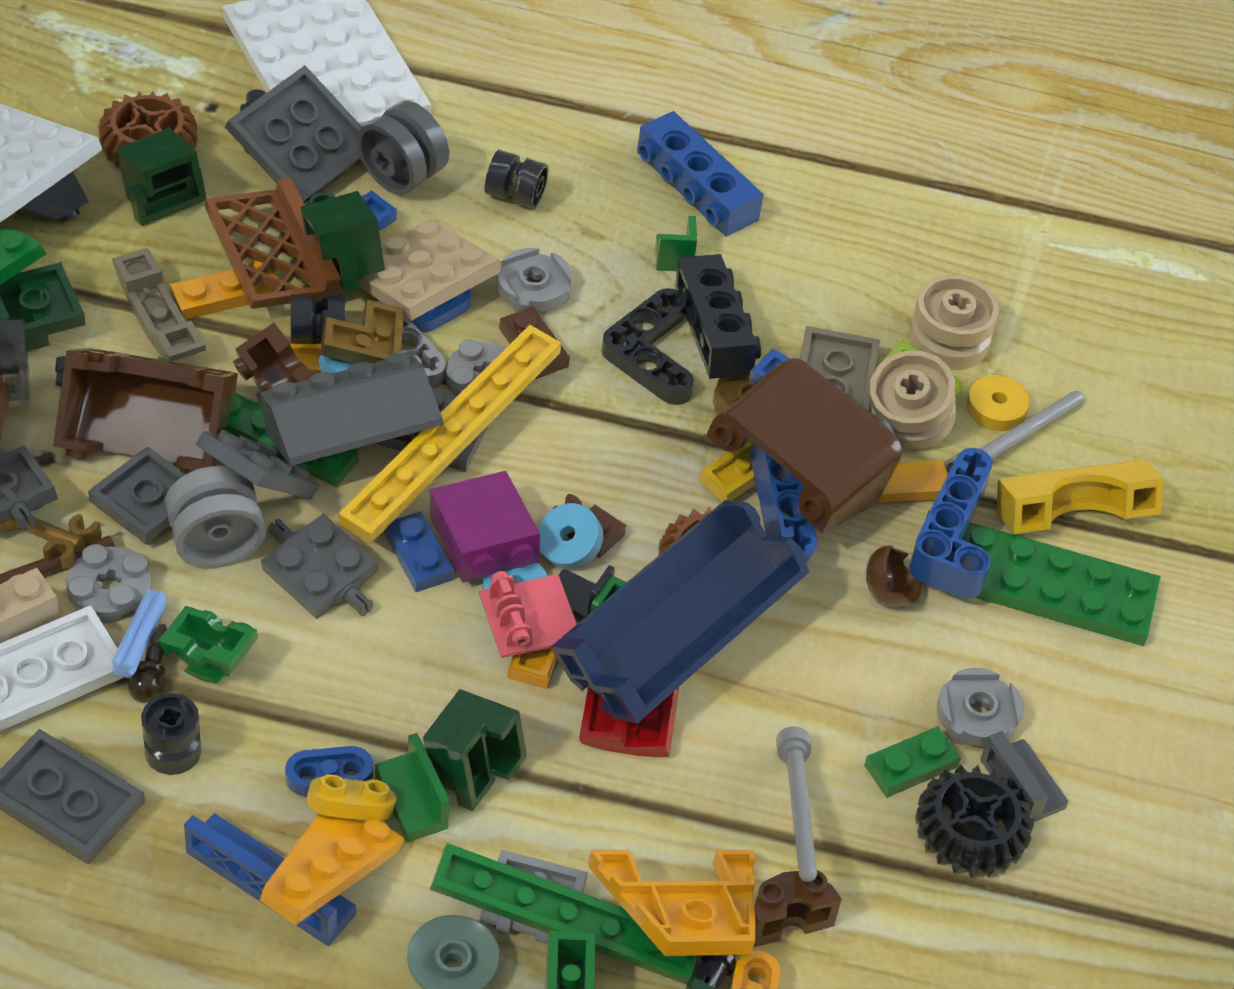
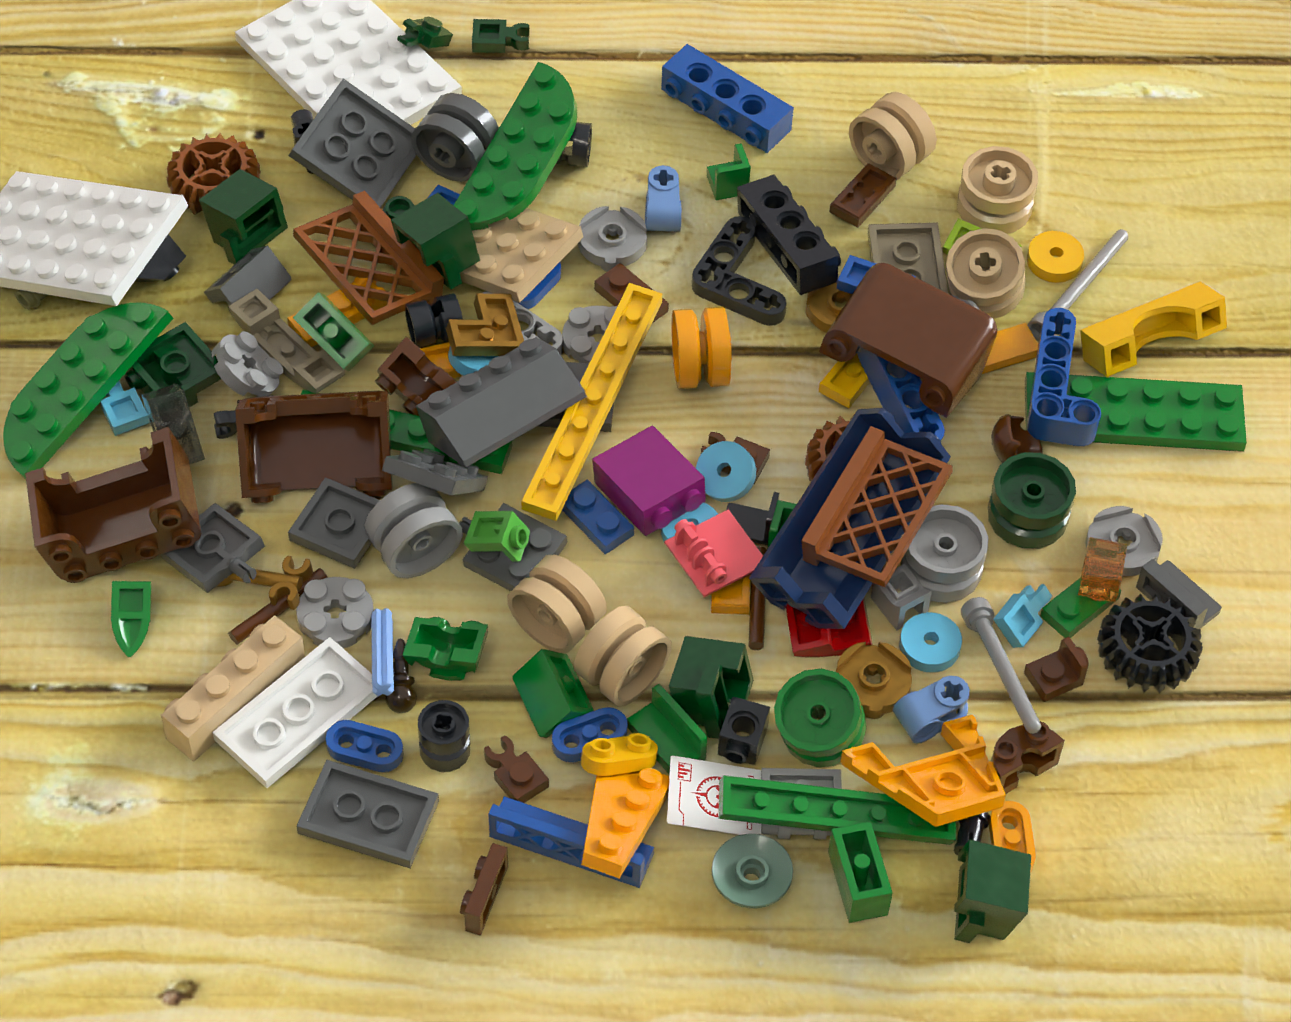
camera: 10 degrees left, 5 degrees up
(89, 727) = (367, 744): none -> blue plate
(101, 302) = (246, 365): none -> light grey plate
(159, 233) = (254, 270): none -> dark grey panel
(166, 894) = (489, 875): none -> reddish brown plate
(207, 304) = (333, 331): none -> green brick
(238, 794) = (518, 775): none -> reddish brown plate
(302, 539) = (498, 532): none -> bright green bracket
(306, 715) = (551, 691): none -> green panel
(338, 626) = (557, 603): none -> tan wheel
(388, 695) = (622, 655): none -> tan wheel
(413, 46) = (425, 32): none -> dark green plate
(415, 861) = (695, 795): none -> white sticker
(462, 174) = (521, 150): none -> green plate
(483, 64) = (494, 36): none -> dark green plate
(500, 792) = (748, 718): none -> black brick
(552, 696) = (757, 615): none -> reddish brown bar
(579, 808) = (831, 700): none -> green wheel
(589, 405) = (705, 347): none -> light orange wheel
(597, 256) = (663, 200): none -> medium blue piece
(653, 807) = (879, 659): none -> pearl gold plate
(680, 590) = (845, 500): none -> dark orange fence
(704, 830) = (926, 710): none -> medium blue piece
(712, 700) = (900, 595): none -> light grey window
(729, 779) = (935, 628): none -> medium azure piece
(775, 672) = (948, 553): none -> light grey wheel
(810, 297) = (862, 195): none -> reddish brown plate
(839, 757) = (1020, 616): none -> medium azure plate
(858, 243) = (893, 134): none -> tan wheel
(864, 827) = (1058, 671): none -> reddish brown bracket
(889, 640) = (1031, 500): none -> dark green wheel
(942, 729) = (1102, 569): none -> clear orange brick

